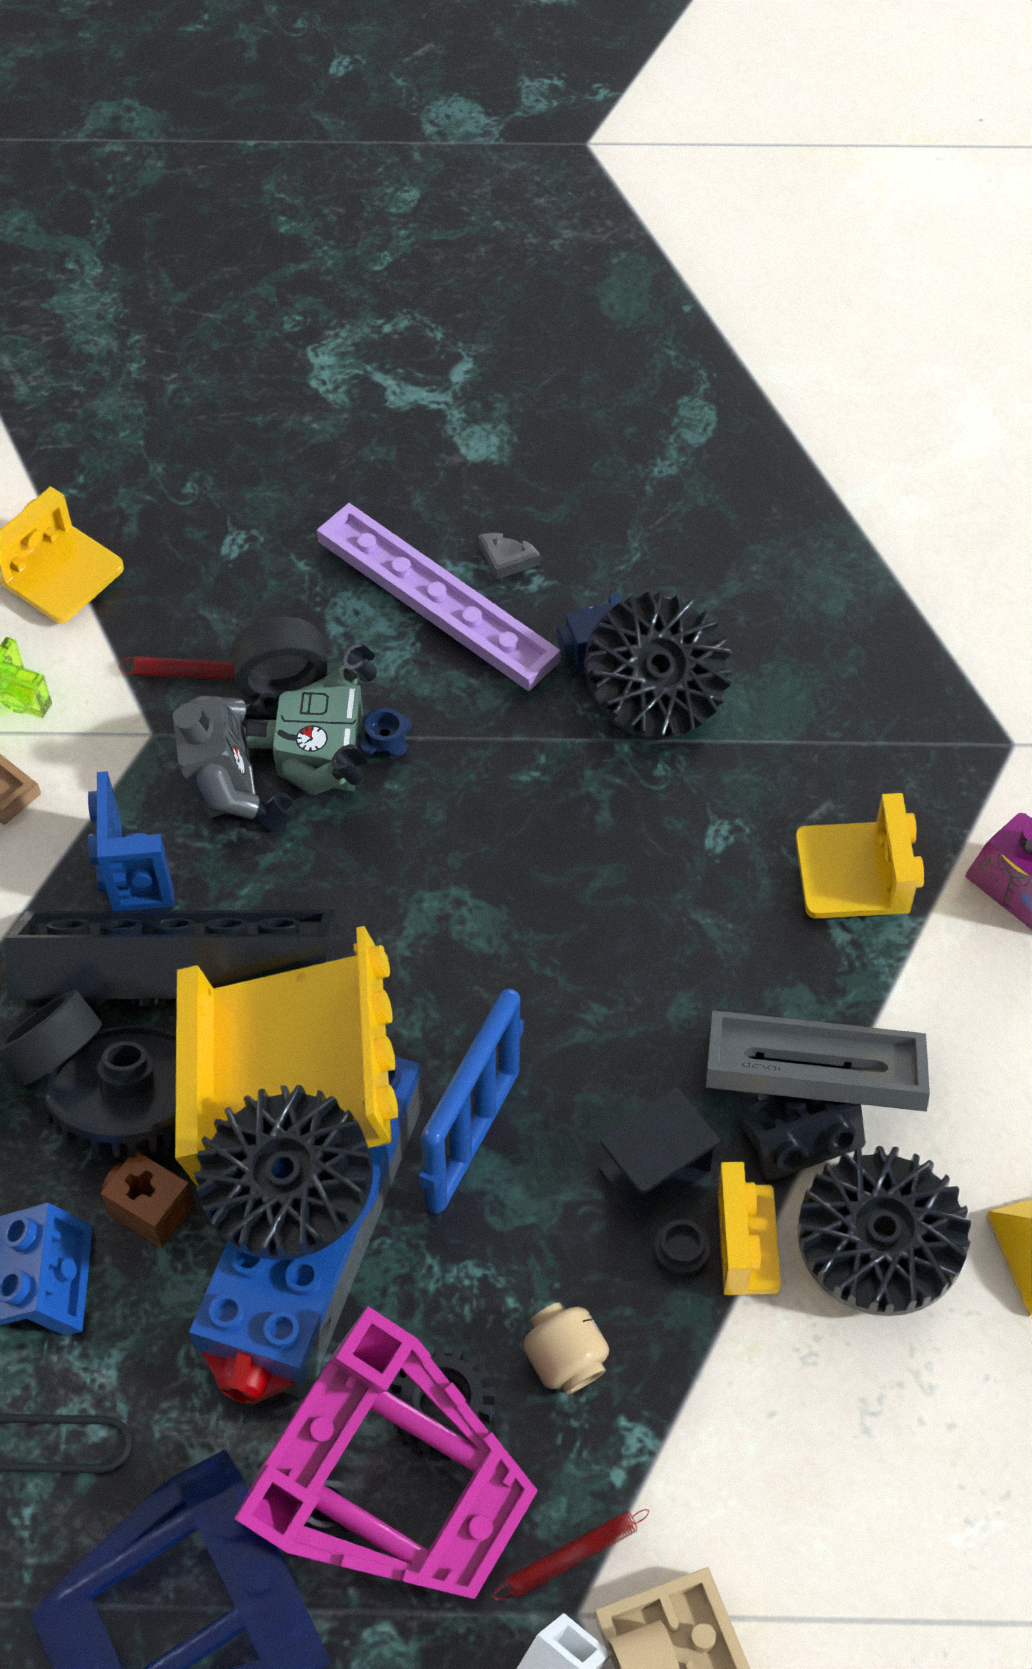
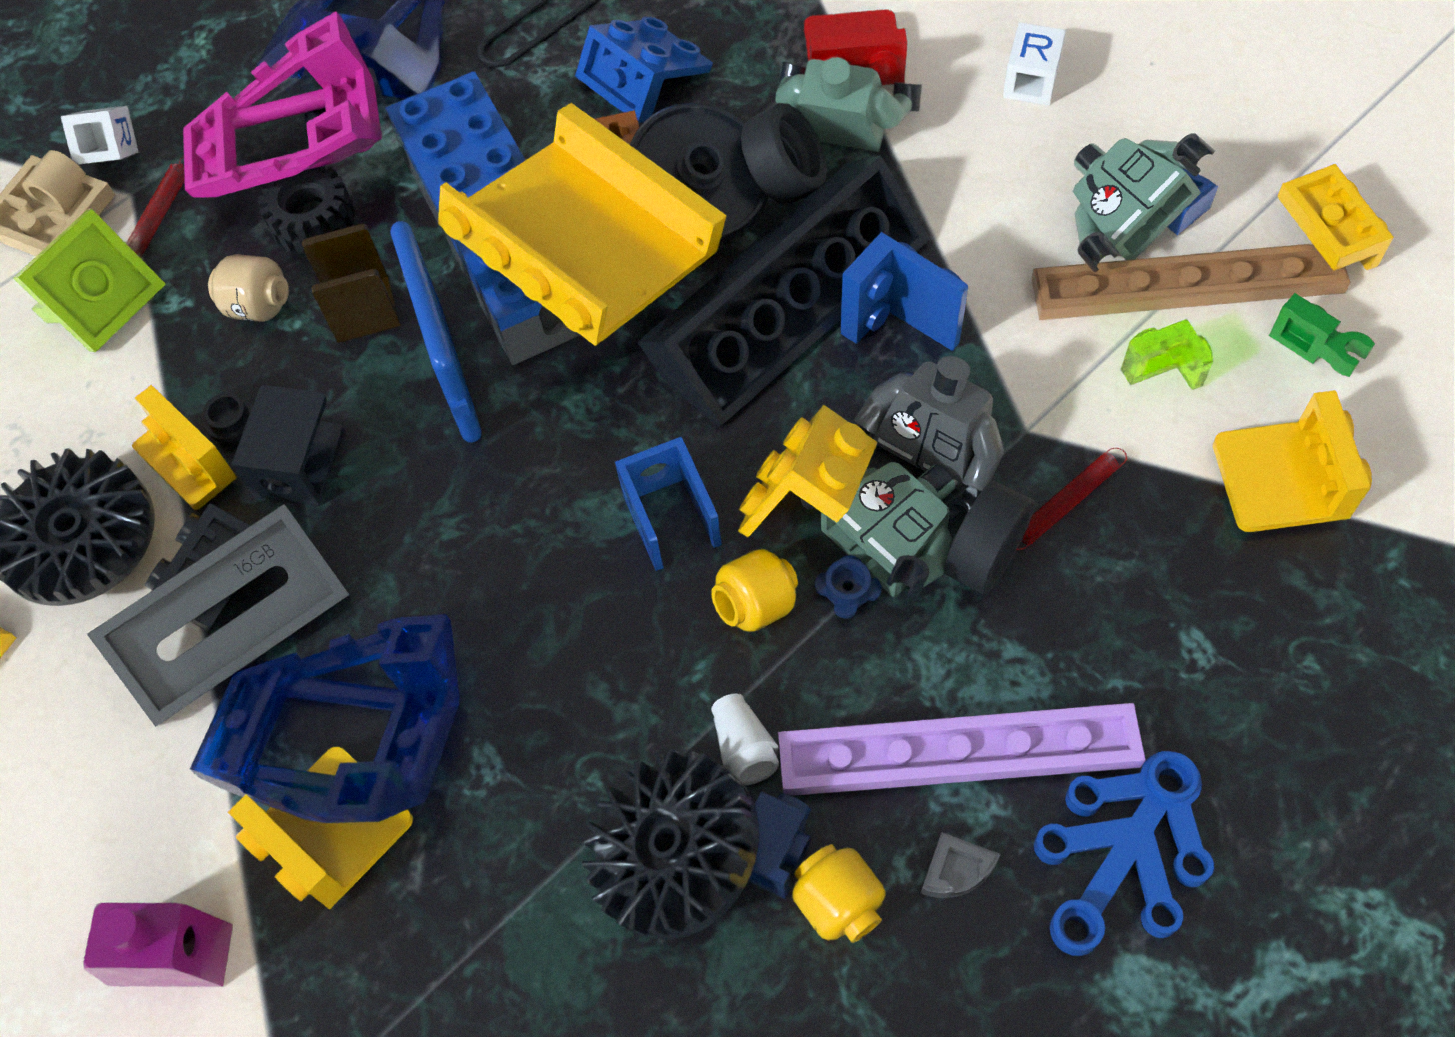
camera: 140 degrees right, 5 degrees up
(275, 1138) = (485, 143): black wheel -> none
(343, 781) = (819, 465): none -> yellow bracket
(406, 489) = (1131, 842): none -> blue plant
(447, 769) = (755, 590): none -> yellow head
(448, 898) = (678, 468): none -> blue piece
(491, 1228) = (353, 283): none -> dark brown piece
(552, 698) = (744, 741): none -> white cone
(588, 577) = (838, 893): none -> yellow head
(700, 1489) = (89, 281): none -> lime bracket
(768, 854) = (418, 660): none -> clear blue windscreen

